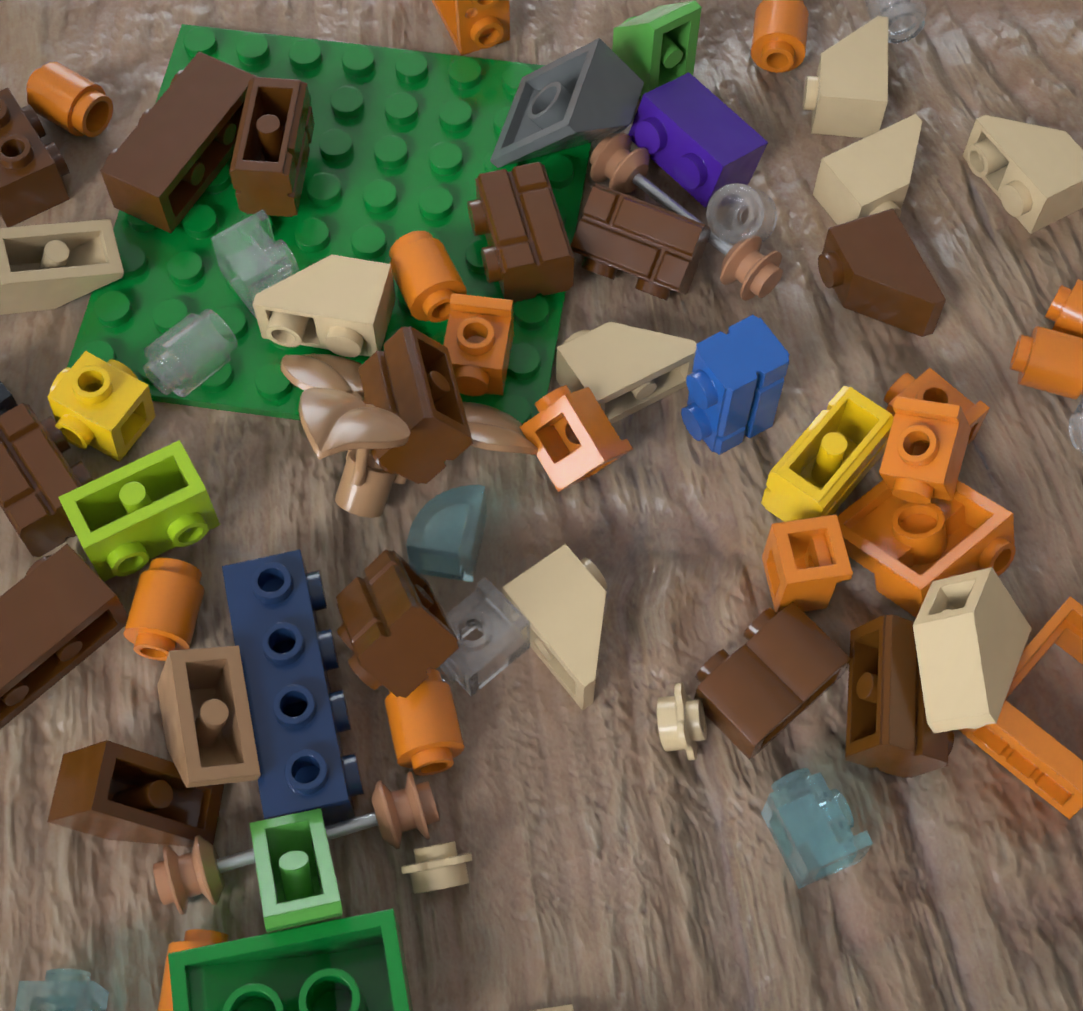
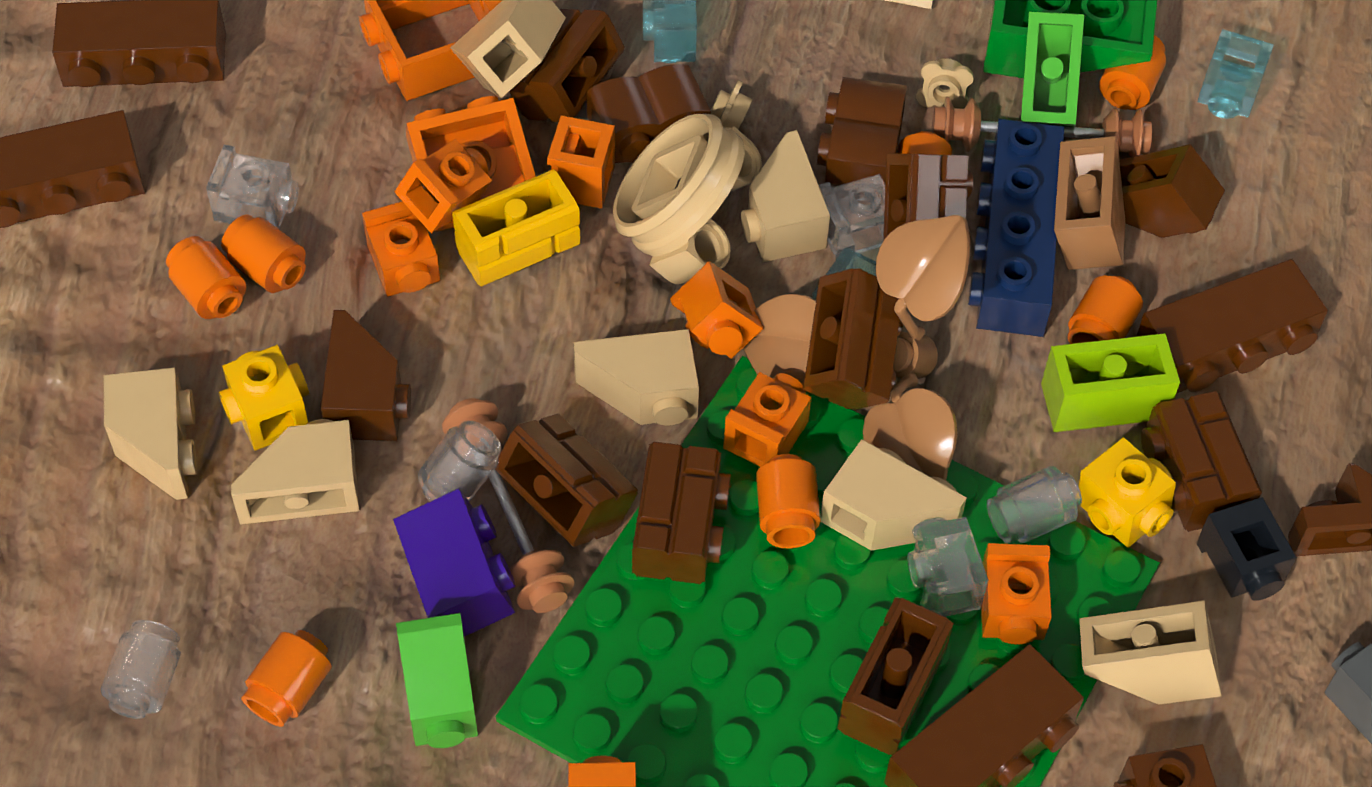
camera: 160 degrees left, 5 degrees down
(183, 259) = (1017, 593): none -> orange brick
(511, 750) = (864, 129): none -> reddish brown brick
(569, 105) = (578, 624): dark grey slope -> none
(666, 603) = (677, 222): none -> tan piece
(735, 385) = (563, 297): blue brick -> none
(851, 84) = (251, 587): tan slope -> none
(953, 219) = (264, 395): none -> yellow brick

